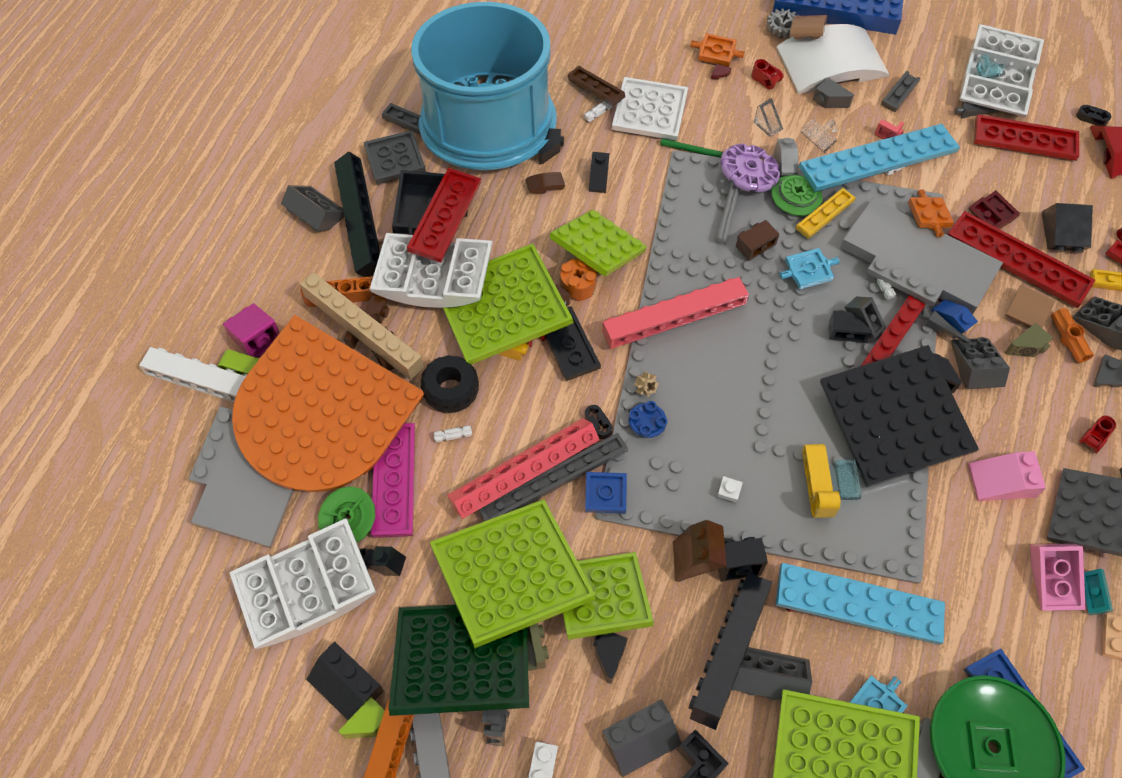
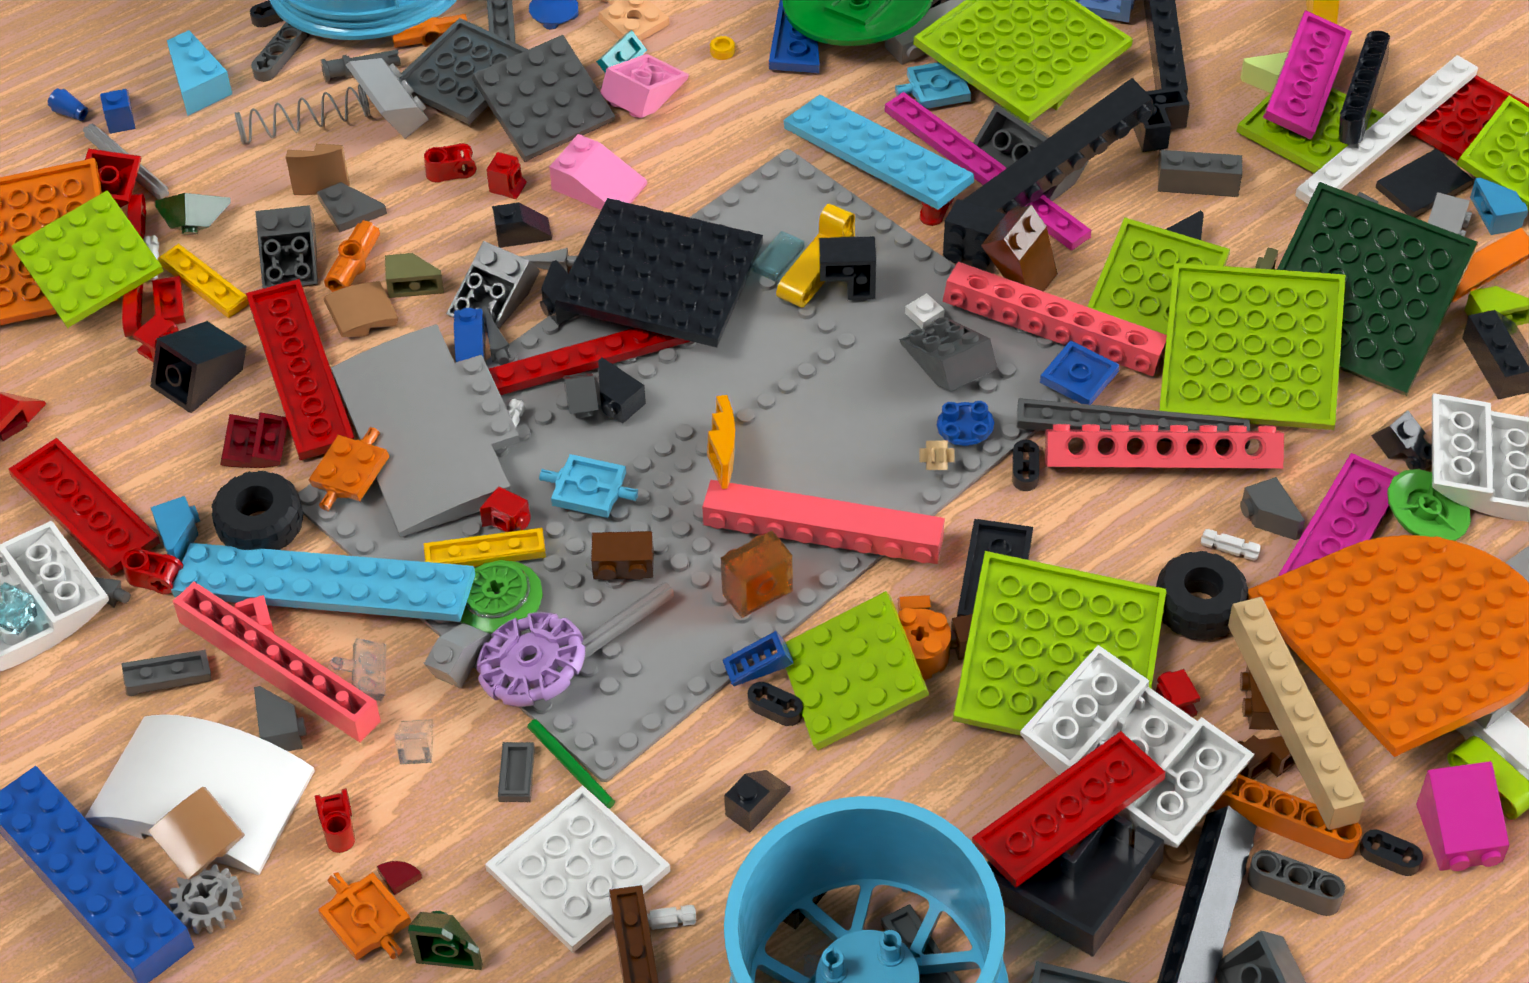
camera: 145 degrees left, 10 degrees down
(284, 304) = (1391, 852): none -> black beam
(324, 261) = (1312, 880): none -> dark grey beam
(432, 323) = (1178, 690): none -> red window
(440, 466) = (1272, 509): none -> dark grey slope
(573, 531) = (1054, 318): none -> coral brick
(597, 300) = (914, 602): none -> orange tile
(626, 220) = (775, 703): none -> black beam
(645, 229) = (762, 667): none -> blue slope
(677, 51) = (443, 942): none -> dark green slope
(682, 256) = (756, 573): none -> clear orange brick
(692, 462) = (950, 353): none -> dark grey slope
(713, 134) = (516, 772): none -> dark grey tile
(756, 311) = (722, 441): none -> light orange slope
(792, 475) = (850, 261): none -> black brick
(792, 643) = (972, 158): none -> dark pink plate
(832, 231) = (505, 511): none -> red window
(860, 112) = (277, 661): none -> coral brick
(946, 170) = (252, 494): none -> black tyre
(960, 124) = (150, 569): none -> red piece
(968, 403) = (544, 260): none -> light grey piece
(972, 147) = (176, 525): none -> dark azure slope
(1010, 412) = (519, 225): none -> black slope
(1046, 651) = (722, 48): none -> yellow tile
(1061, 441) = (505, 176): none -> red window
(1104, 230) = (149, 332): none -> red window

